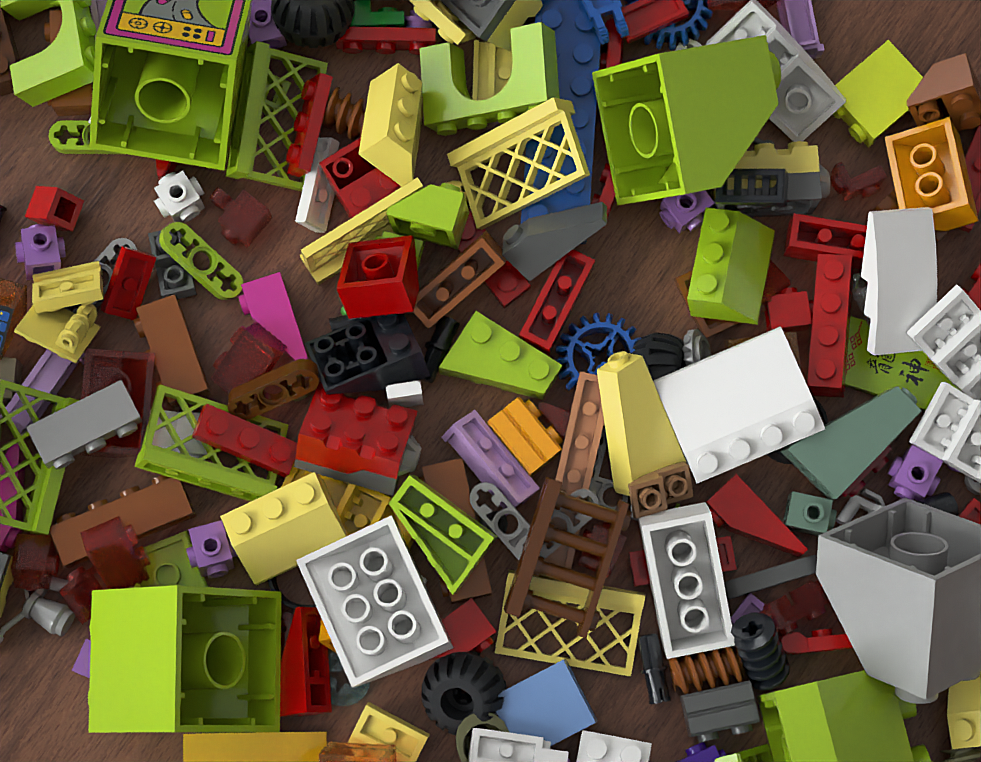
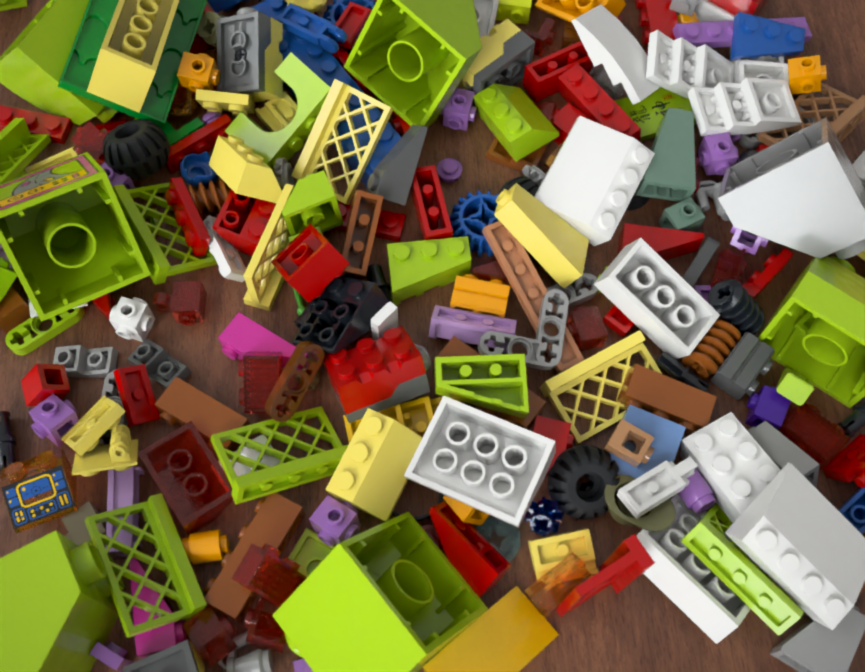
camera: 40 degrees left, 15 degrees down
(85, 425) = (176, 501): light grey brick -> none
(87, 479) = (206, 546): none -> light orange brick
(108, 206) = (86, 362): none -> light grey slope
(189, 237) = (167, 352): lime beam -> none
(245, 440) = (300, 431): red plate -> none
(359, 69) = (195, 169): none -> blue hair
(399, 693) = (544, 517): none -> clear blue gear
(435, 152) = (283, 172): none -> light grey gear
(511, 690) = (626, 433): none -> medium nougat brick
(544, 531) = (558, 358): reddish brown fence -> none
(609, 682) = (667, 398): none -> dark orange brick
(619, 267) = (449, 170): none -> medium lavender plate
(661, 487) = (592, 259): medium nougat slope -> none
(751, 198) = (501, 42): black slope -> none

